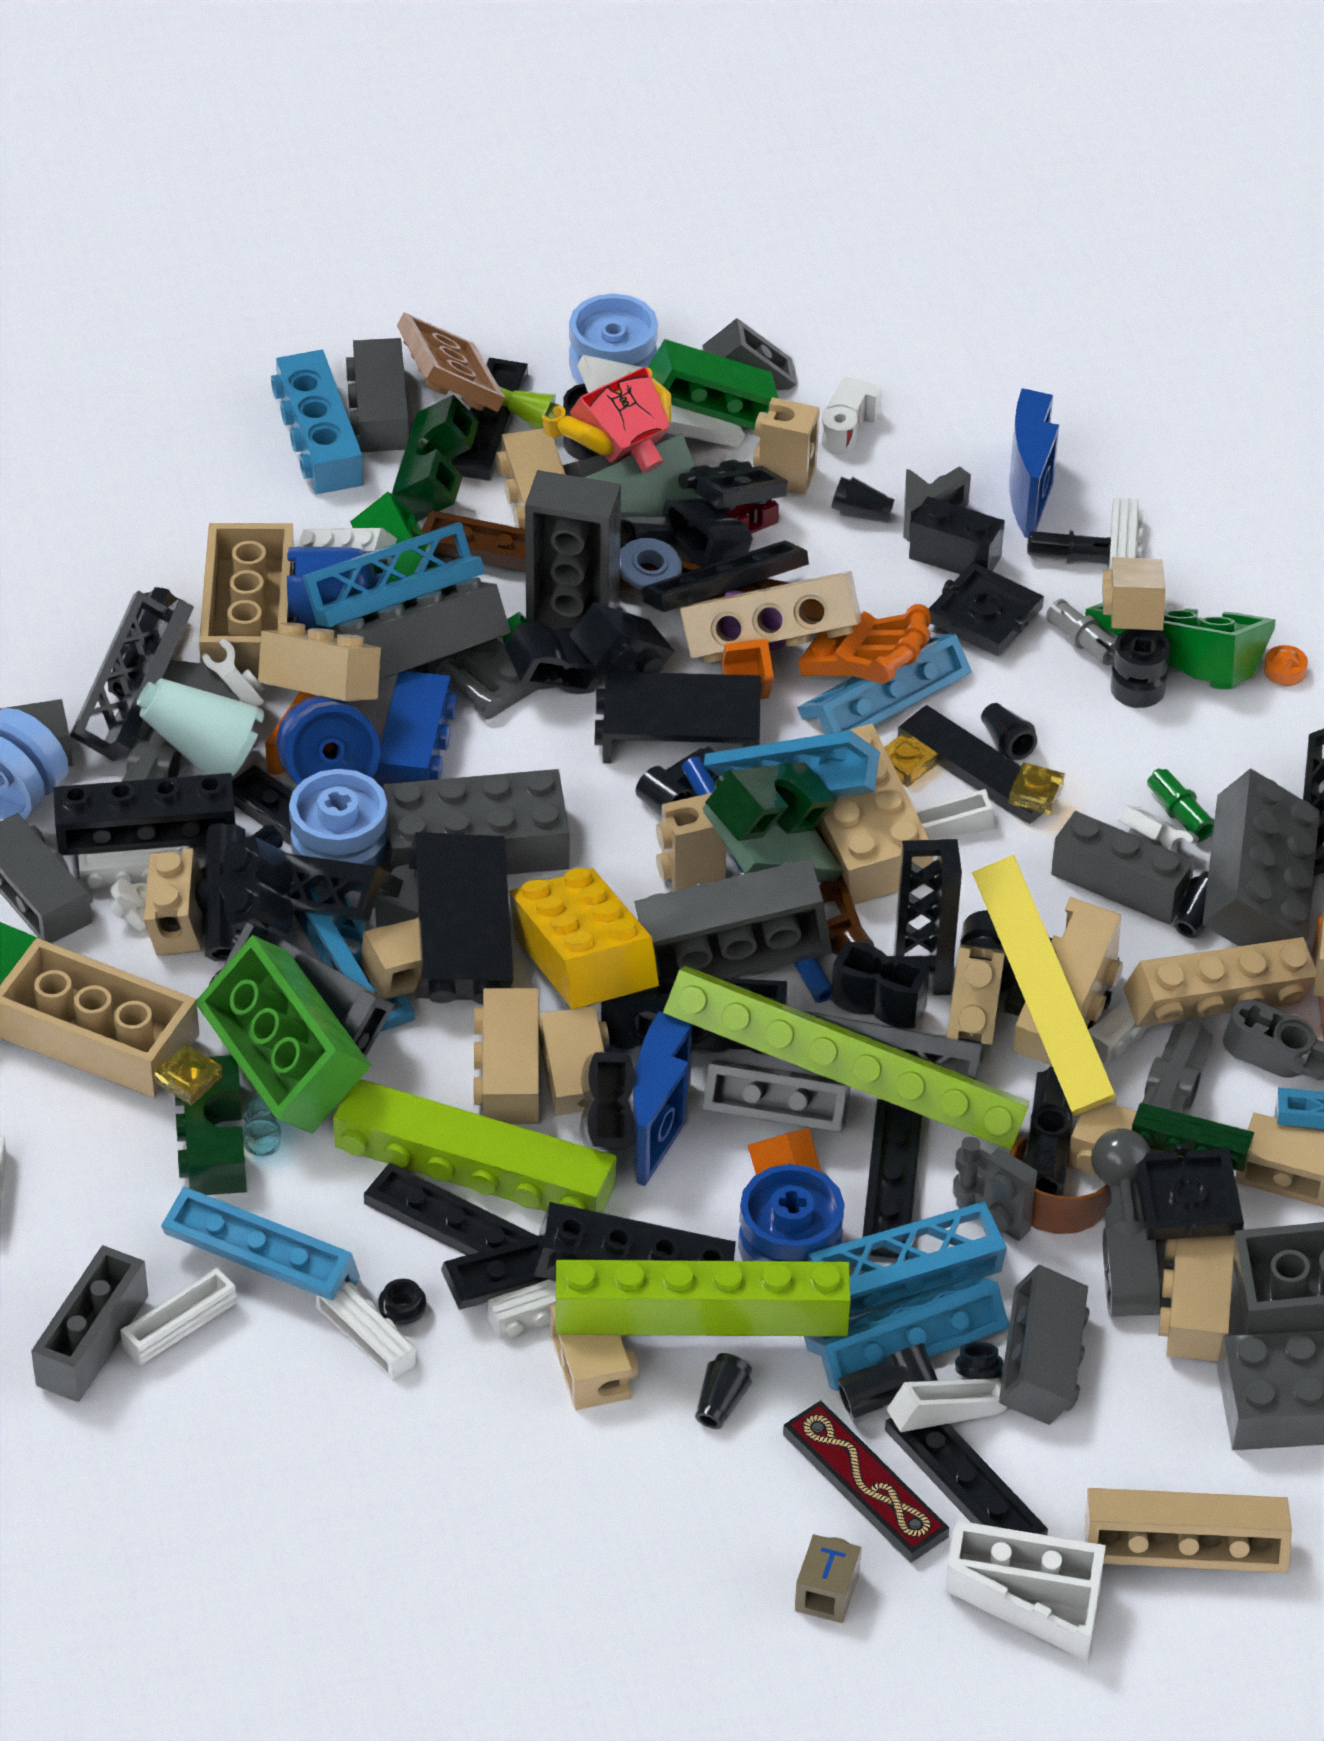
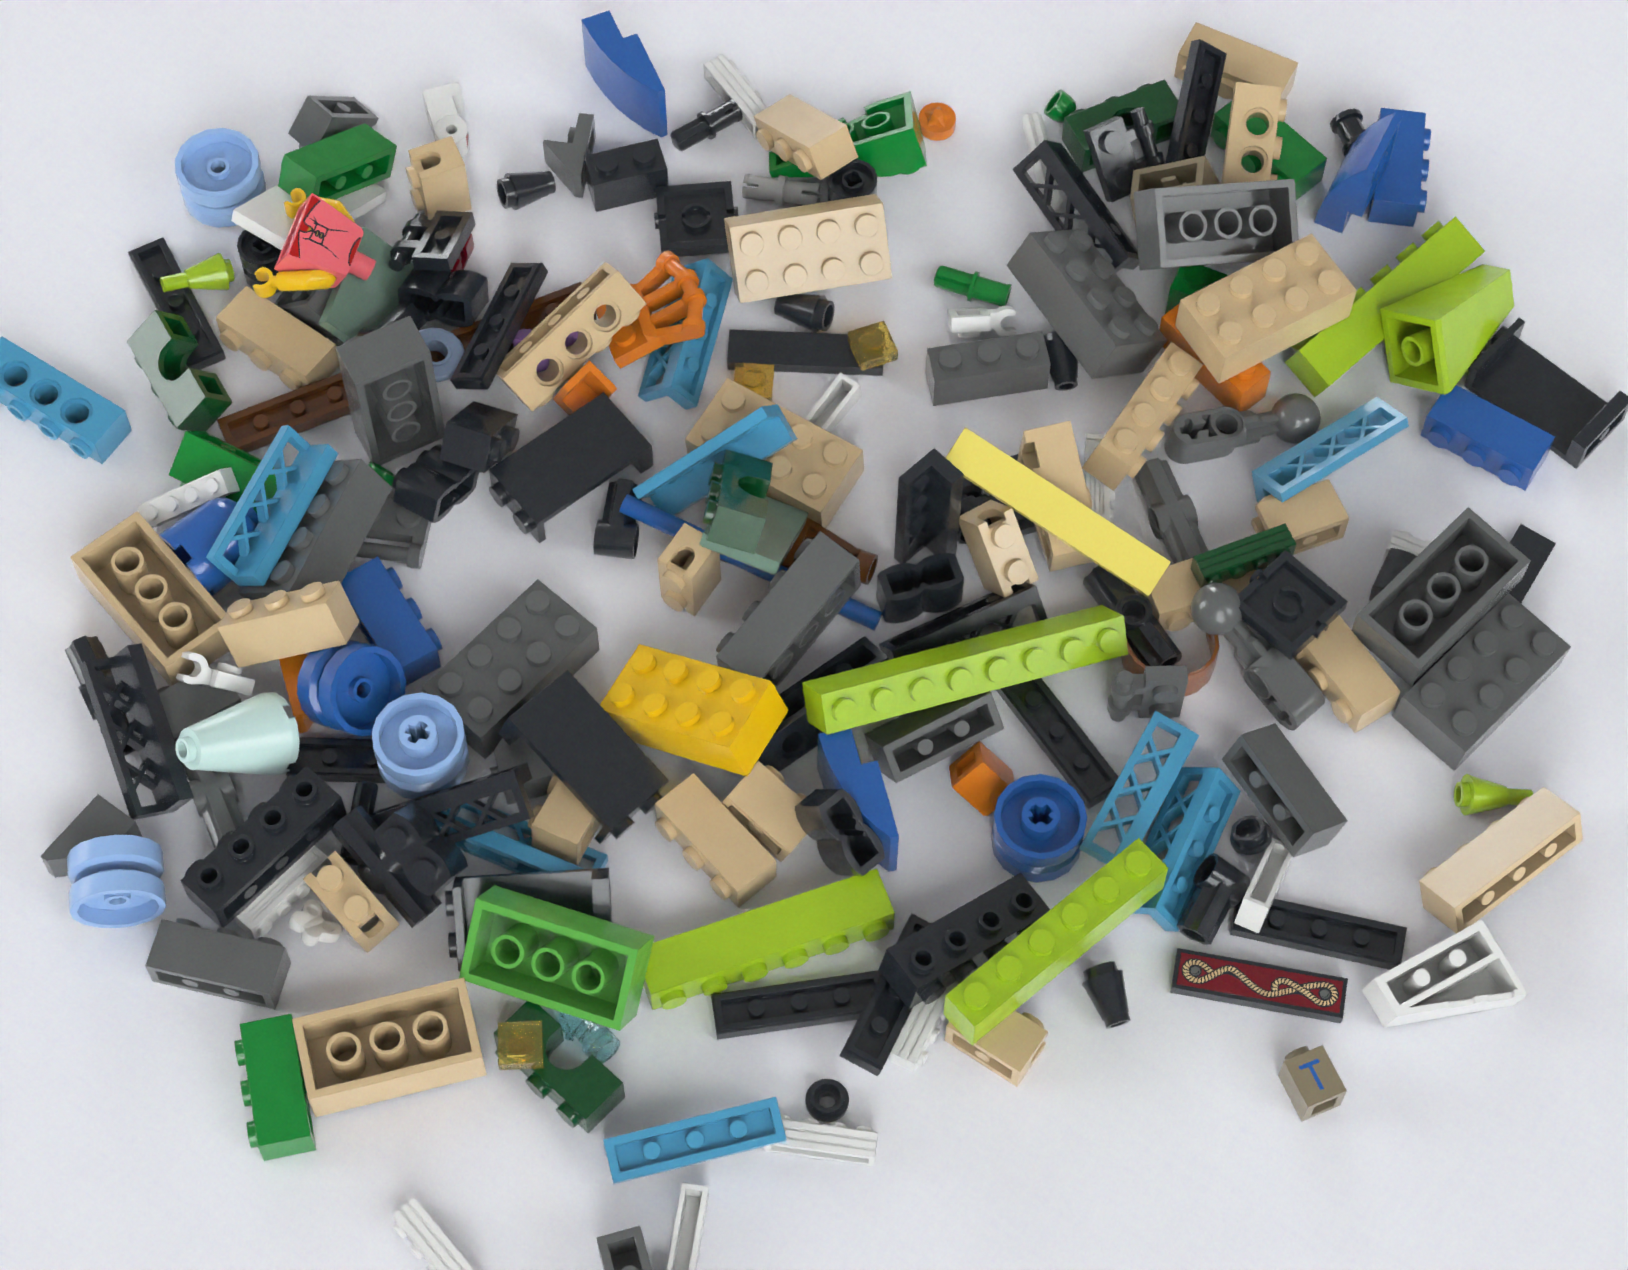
camera: 40 degrees left, 15 degrees up
(378, 394) = (76, 342): dark grey brick -> none
(450, 363) = (121, 282): medium nougat plate -> none
(1050, 676) = (808, 248): none -> tan brick
(1229, 1475) = (1480, 795): none -> lime cone

